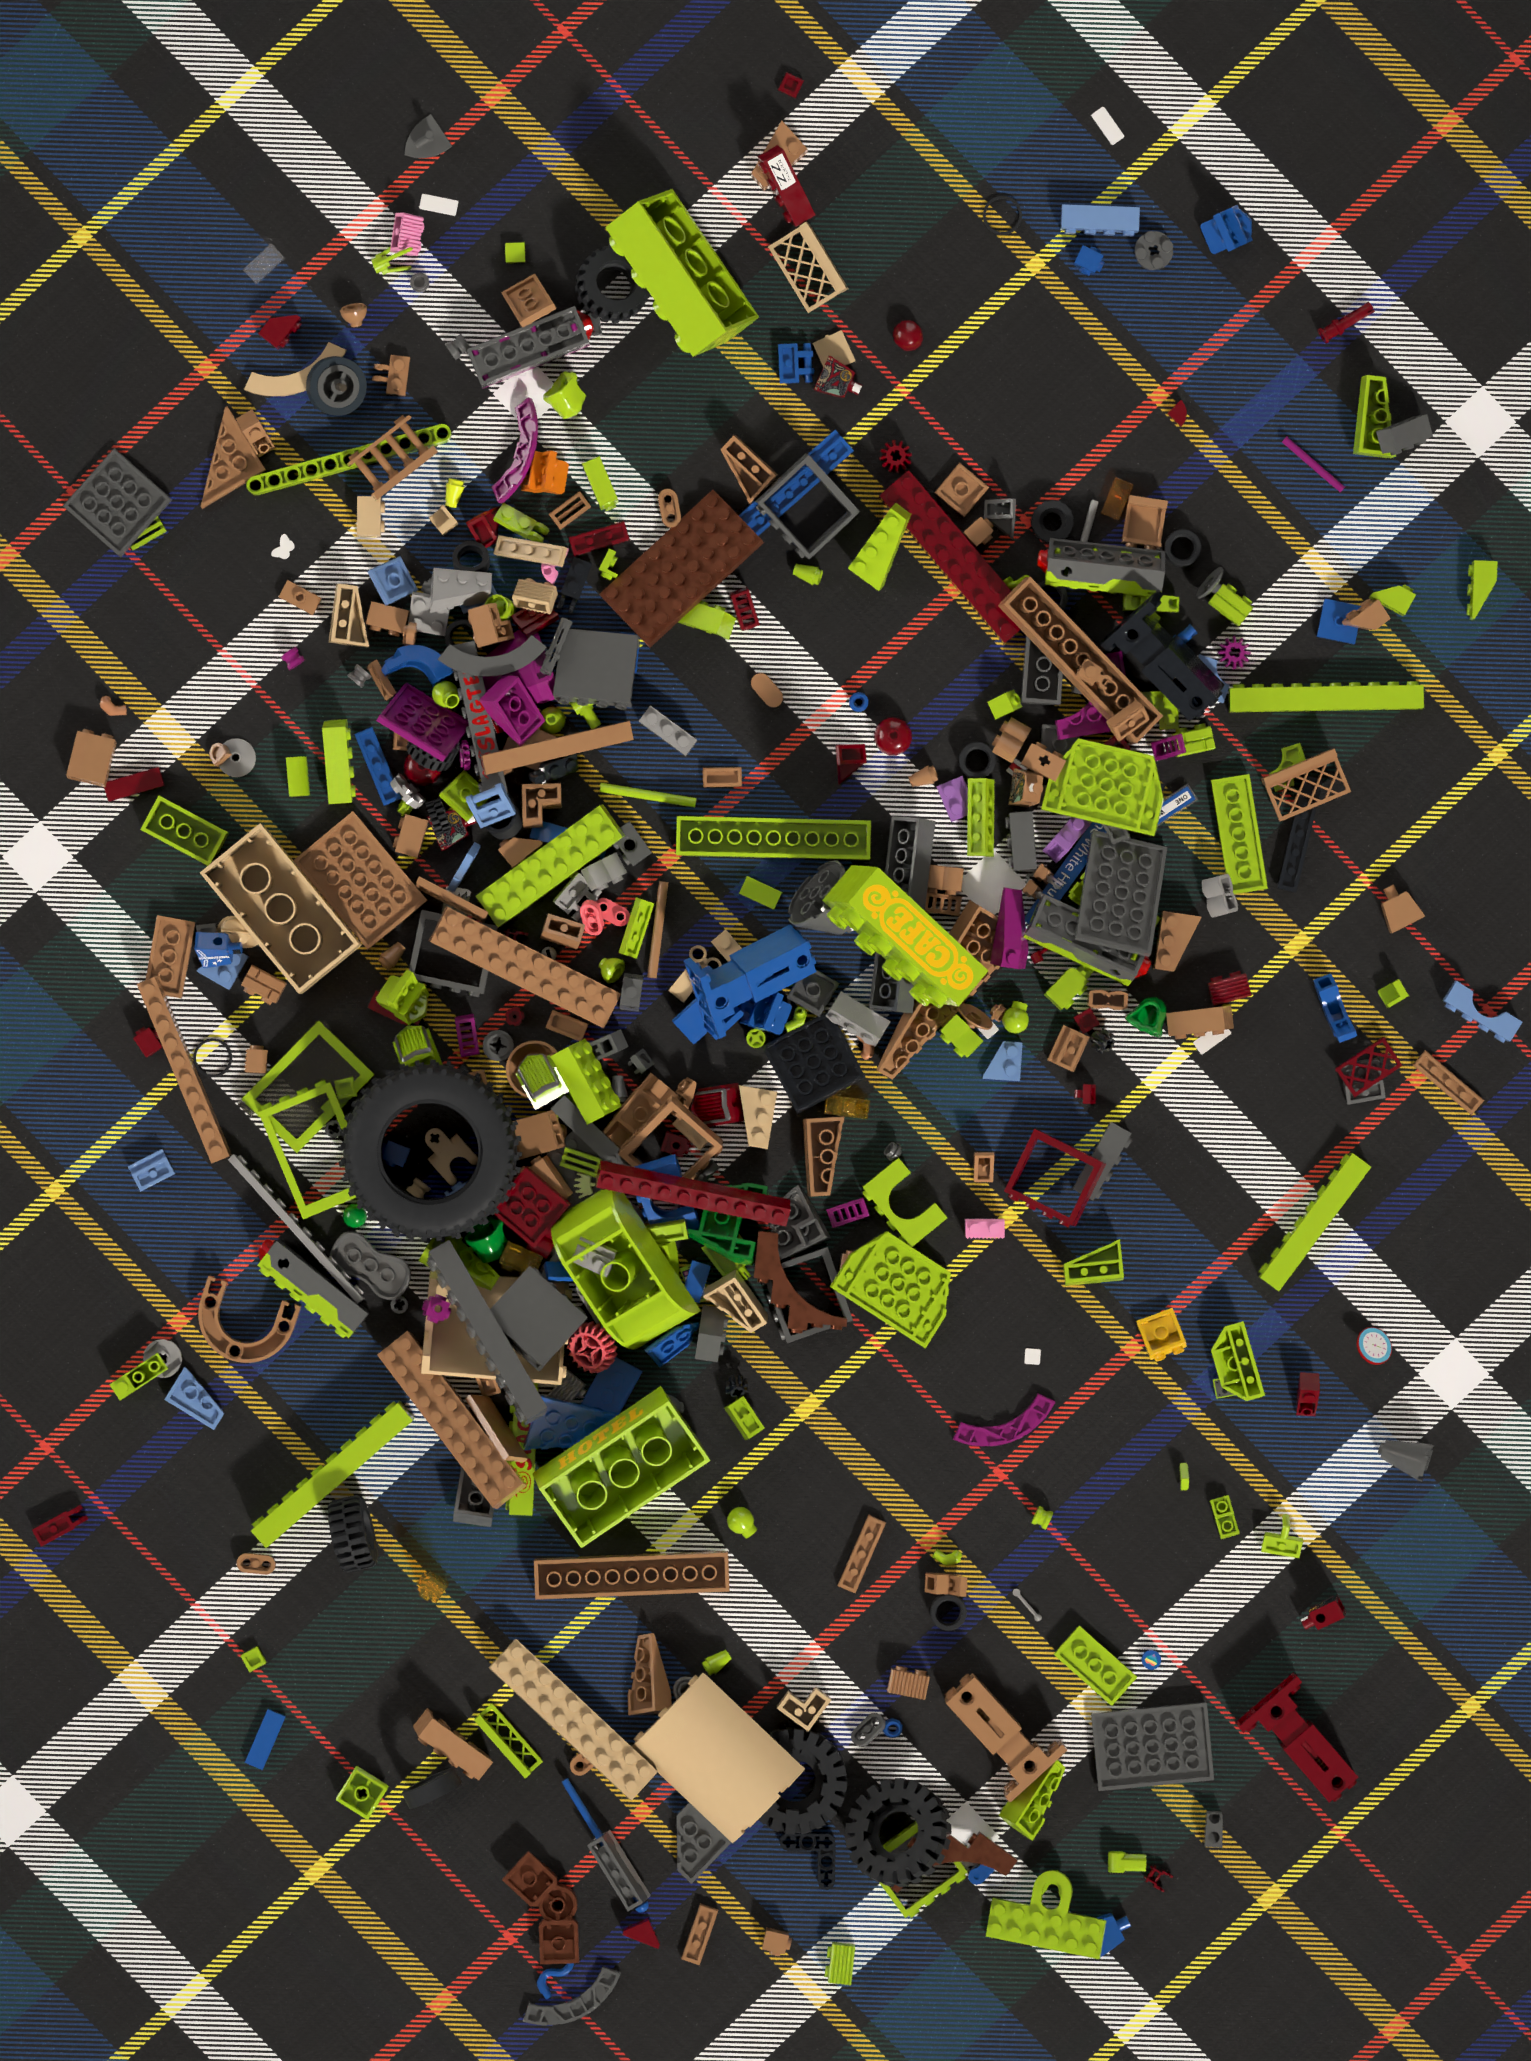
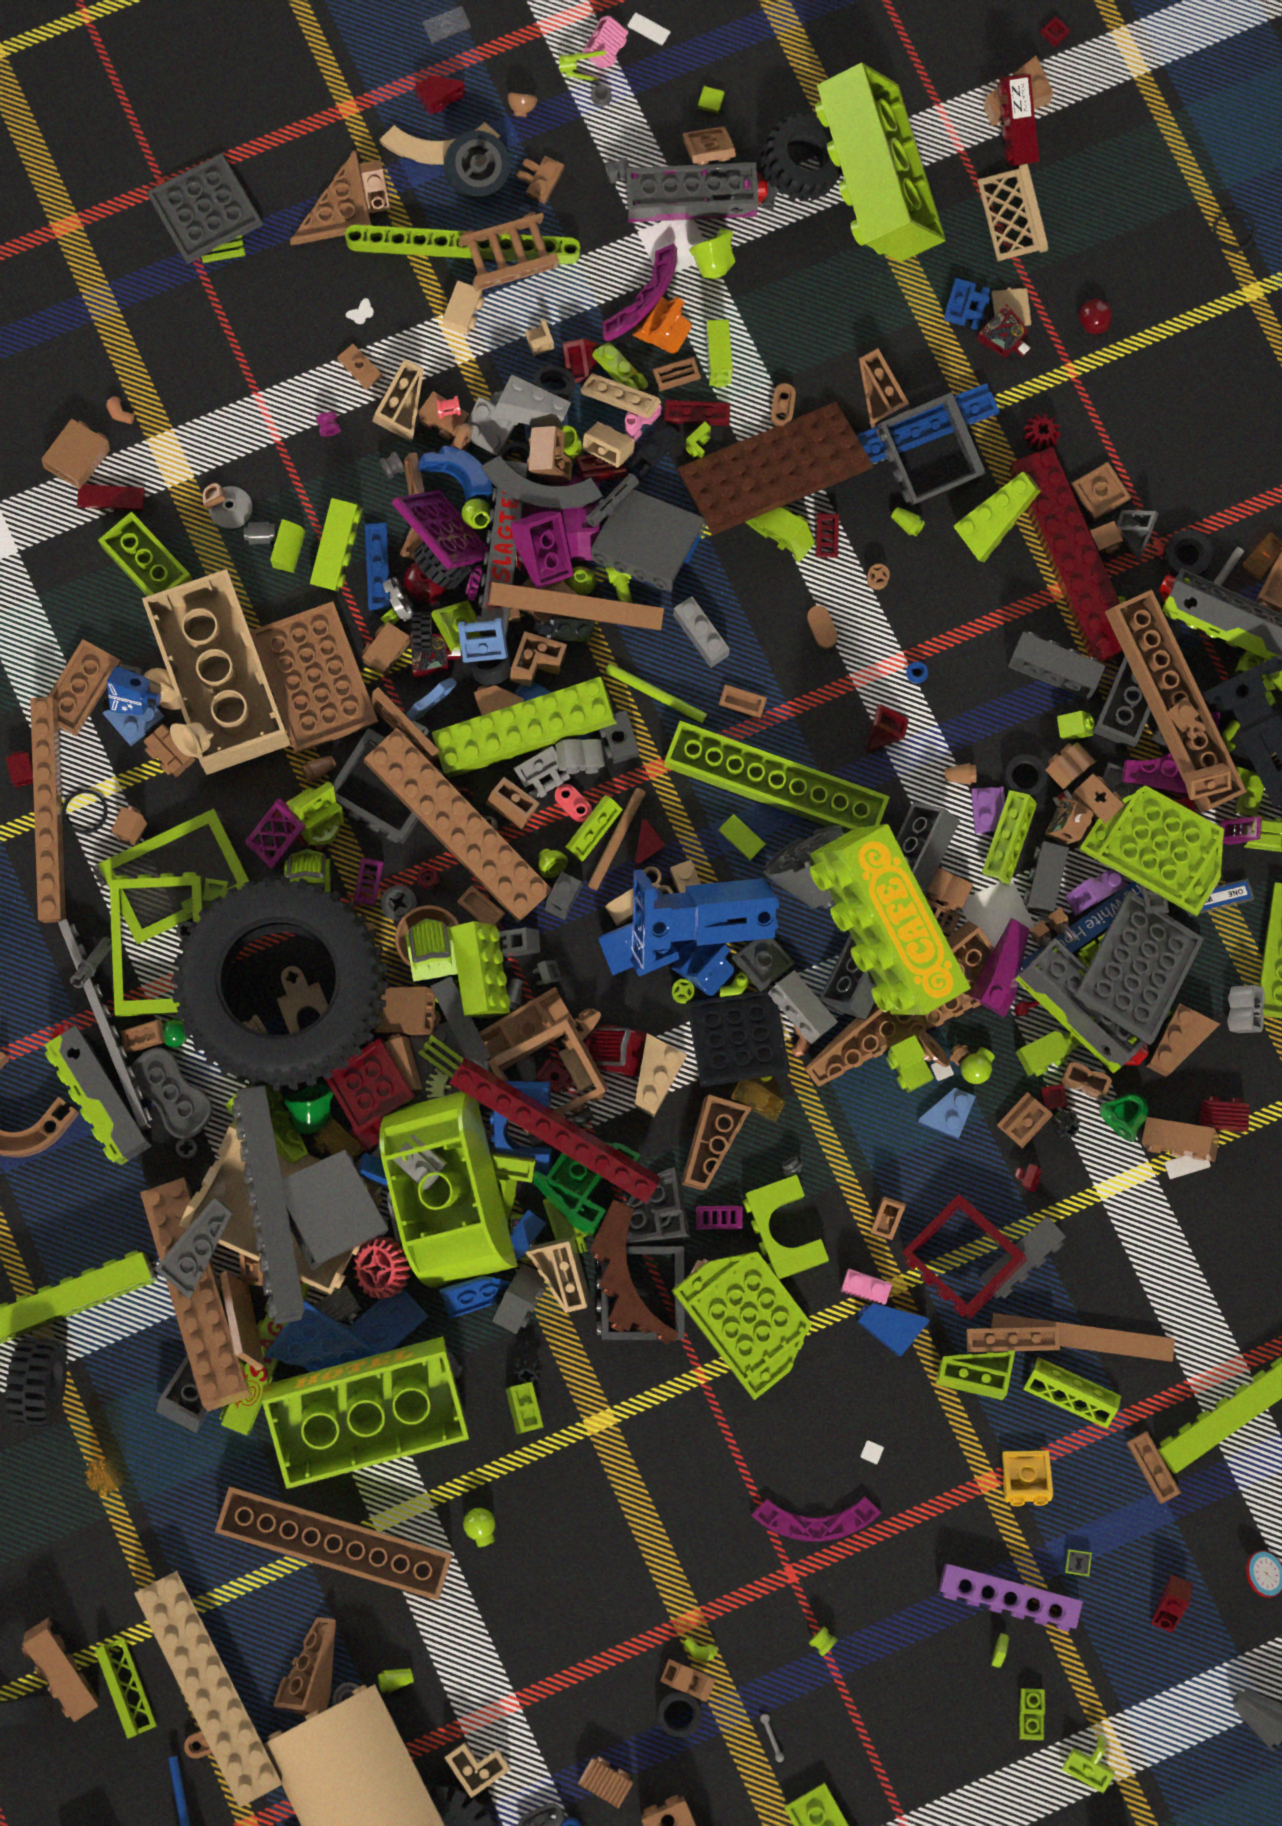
camera: 15 degrees right, 10 degrees down
(267, 1189) = (88, 967): none -> dark grey pin
(270, 773) = (260, 533): none -> dark grey brick
(286, 977) = (191, 738): none -> tan piece
(331, 1227) = (142, 1036): none -> medium nougat plate
(384, 1011) = (262, 850): none -> magenta window
(390, 613) = (448, 407): none -> coral bush
(392, 580) = (463, 379): medium blue tile -> none
(394, 1154) = (243, 980): blue brick -> none
(429, 1308) = (219, 1169): magenta brick -> none
(440, 1390) = (192, 1252): none -> dark grey wing
(453, 492) = (560, 314): neon yellow cone -> none
(591, 913) = (549, 797): coral plate -> none
(686, 926) = (648, 845): none -> dark red slope
(800, 628) = (879, 572): none -> medium nougat wheel
(861, 1553) = (603, 1611): medium nougat tile -> none
(893, 736) = (942, 720): dark red cylinder -> none
(972, 659) = (1056, 665): none -> dark grey brick
(1015, 1252) = (891, 1326): none -> blue slope
(1115, 1230) = (1013, 1339): none -> medium nougat plate
(1128, 1430) = (1069, 1607): none -> medium lavender brick
(1133, 669) = (1228, 733): none -> lime arm
(1171, 1207) = (1097, 1338): none -> medium nougat tile
(1178, 1251) = (1076, 1389): none -> lime fence
(1236, 1363) = (1103, 1538): lime wedge -> none
(1260, 1291) = (1153, 1467): none -> medium nougat tile

